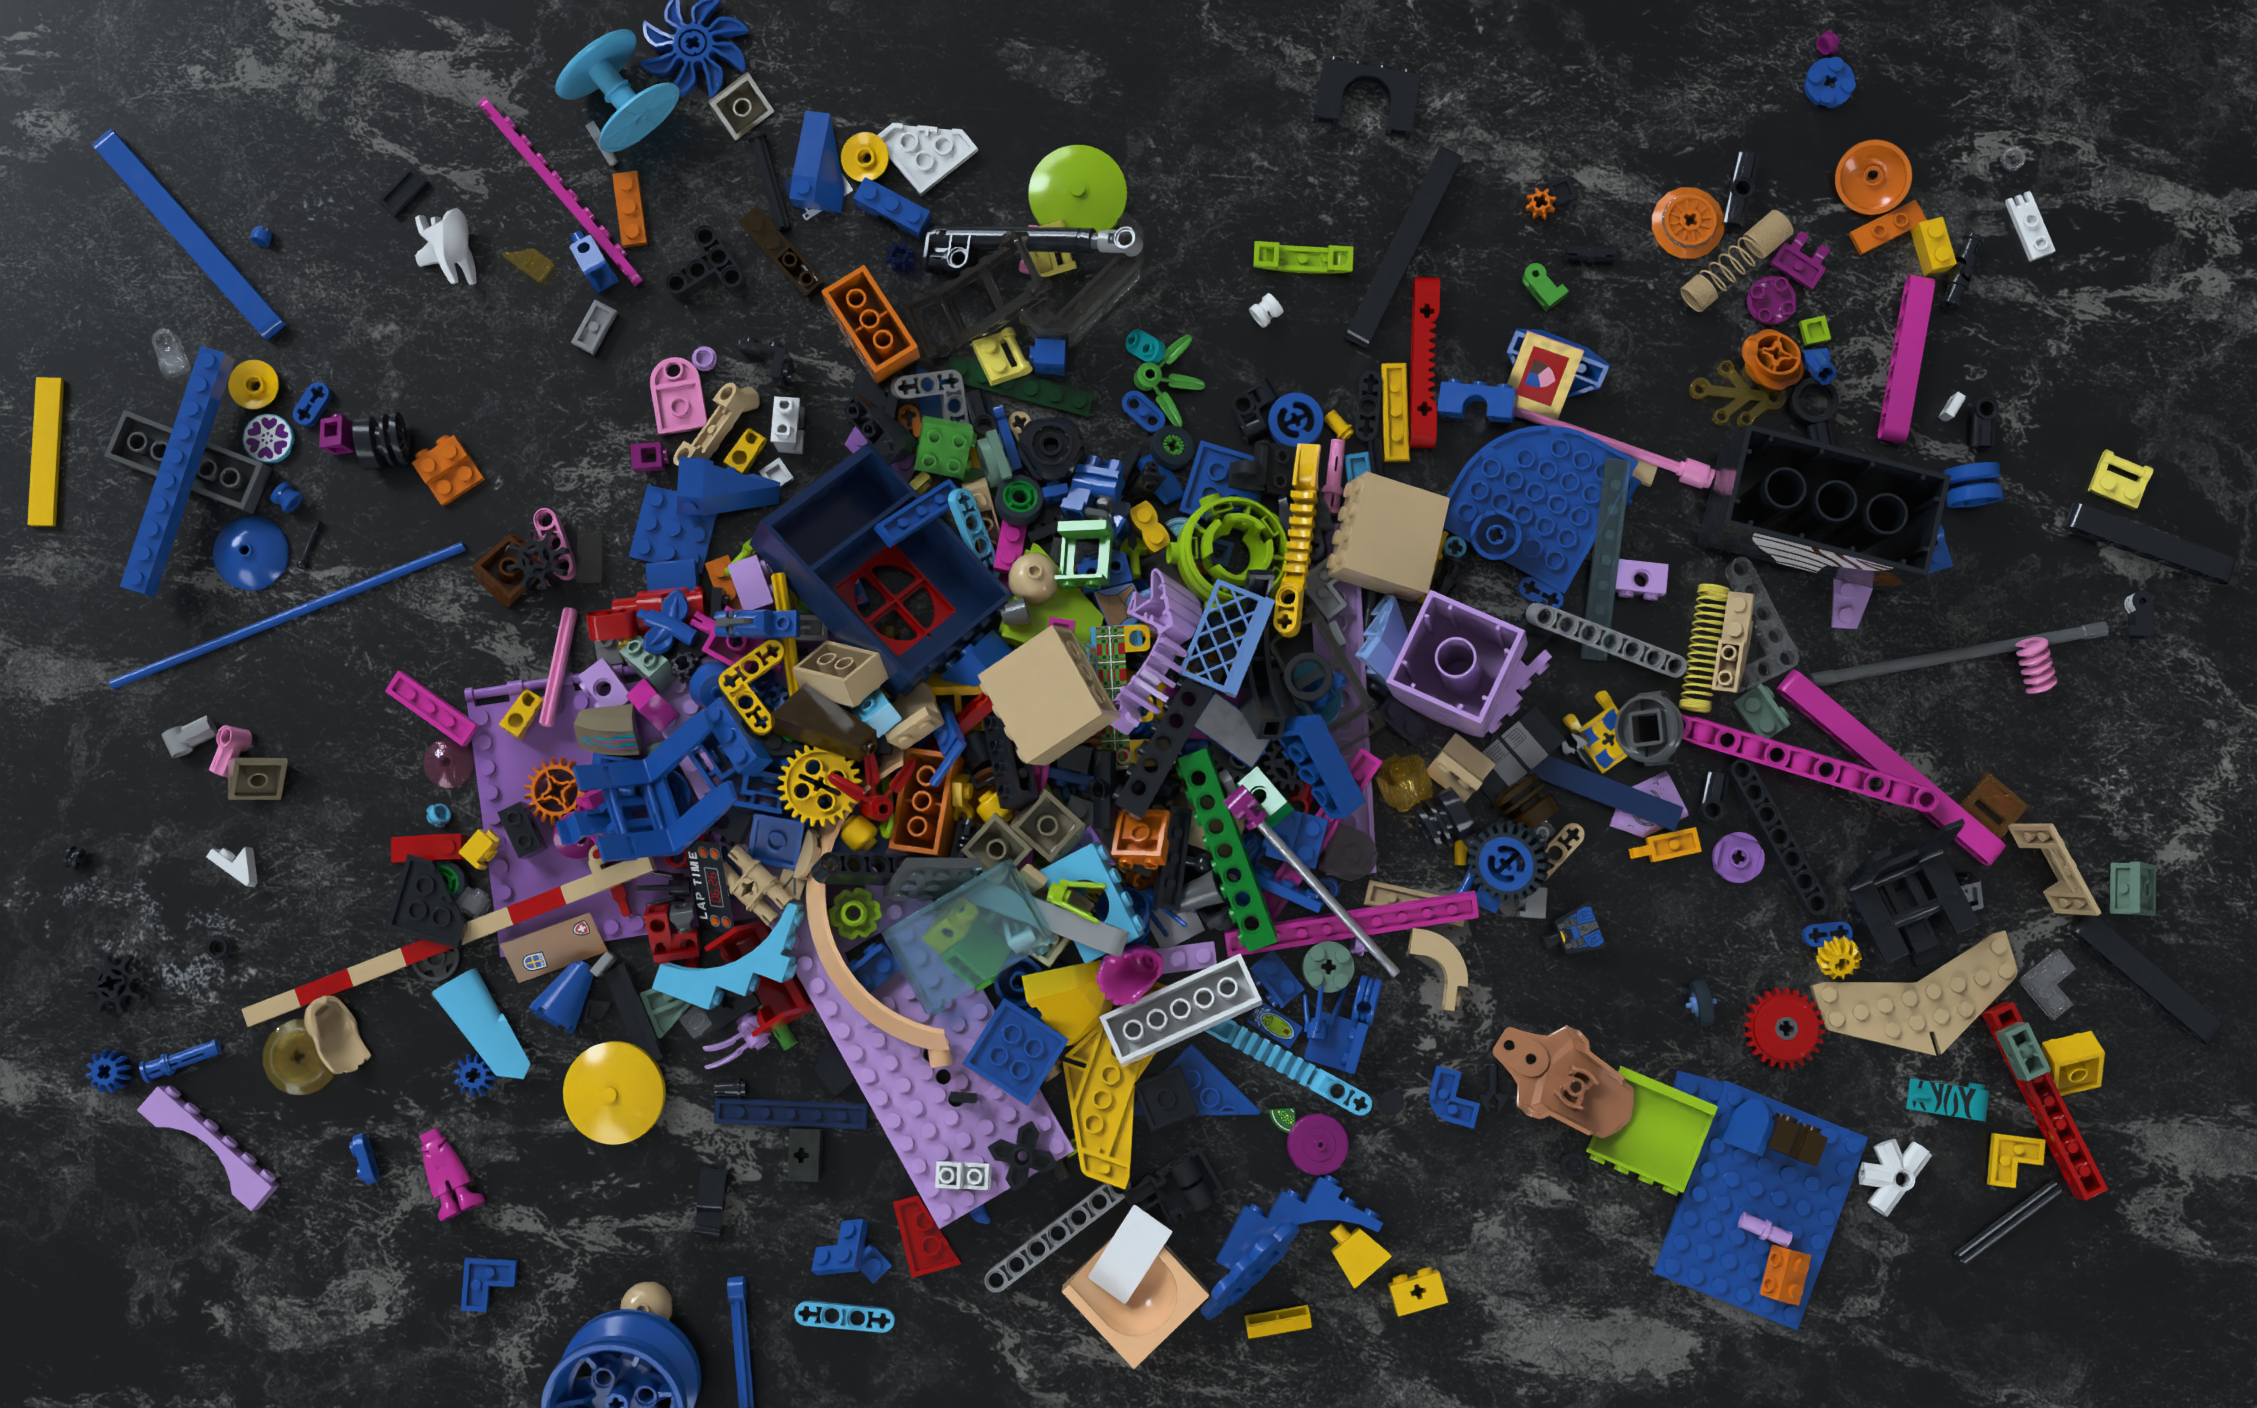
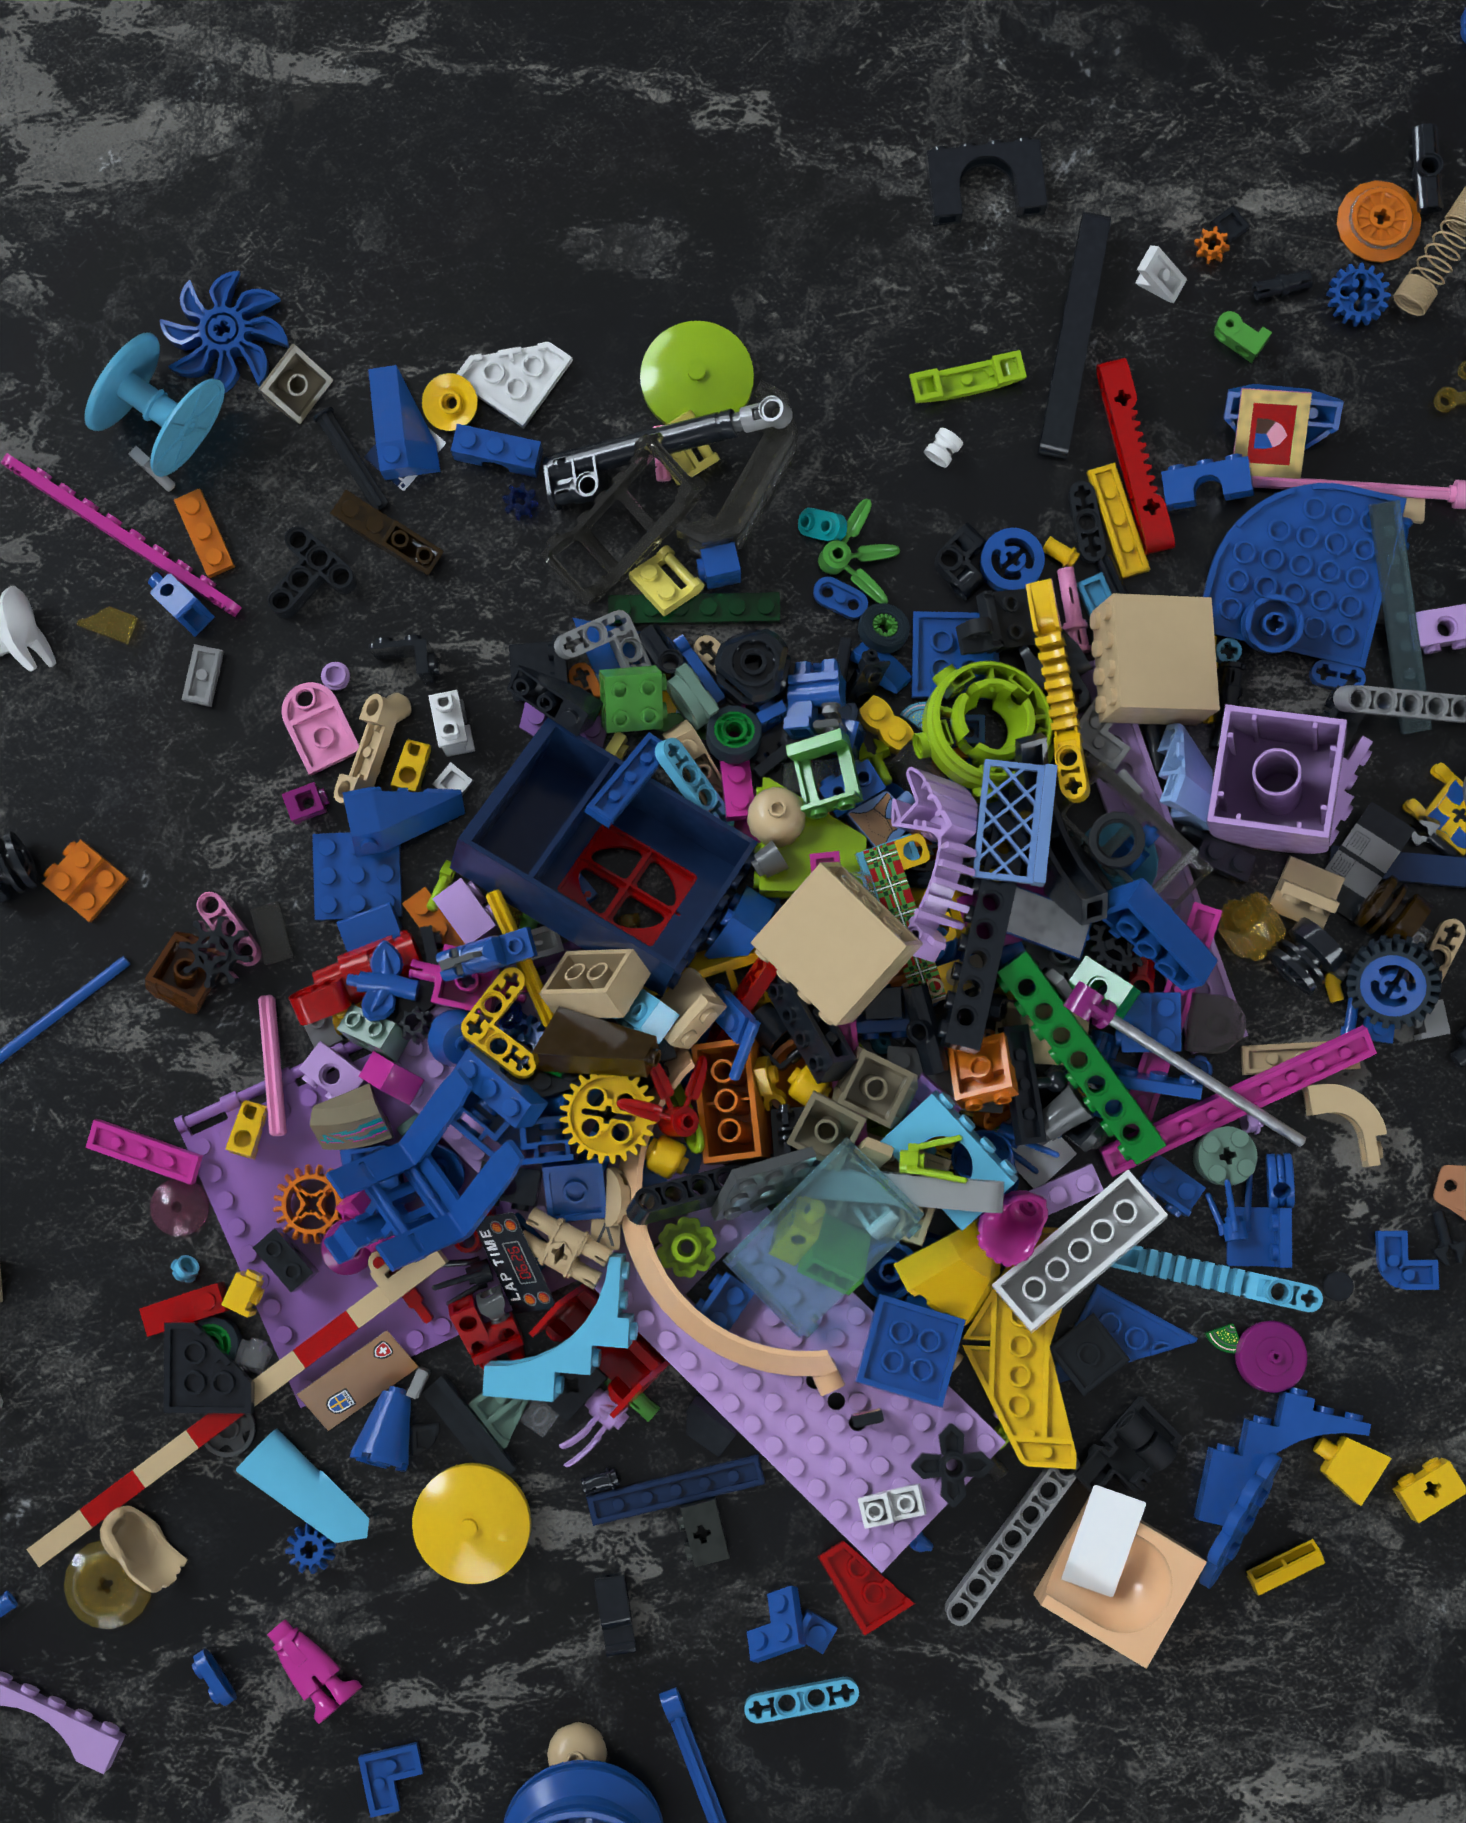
camera: 10 degrees left, 0 degrees up
(870, 324) = (512, 586): orange brick -> none
(1274, 1024) = (1184, 1237): tile -> none
(1490, 216) = (1160, 275): none -> white slope
(1646, 267) = (1347, 282): none -> blue gear

